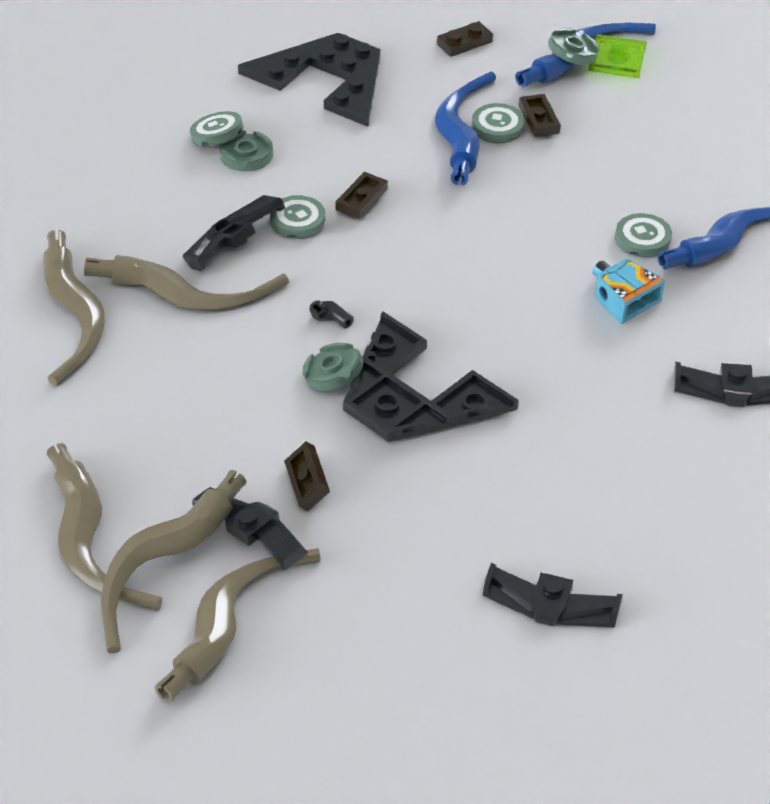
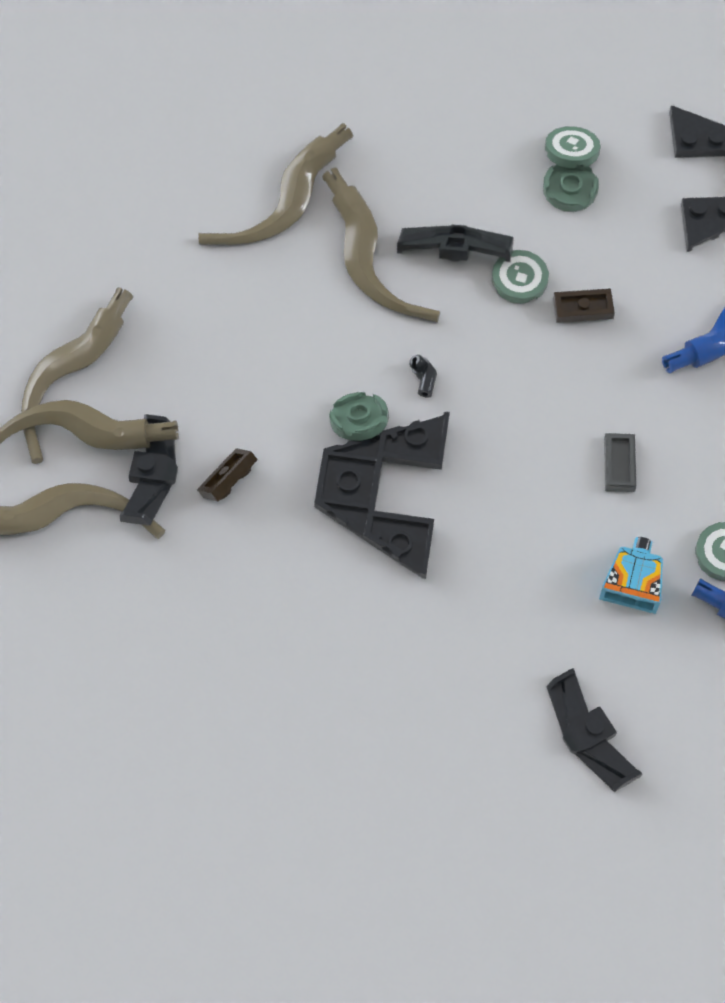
camera: 55 degrees right, 20 degrees up
(515, 249) = (620, 462): none -> dark grey tile
(551, 600) = (232, 724): black plate -> none

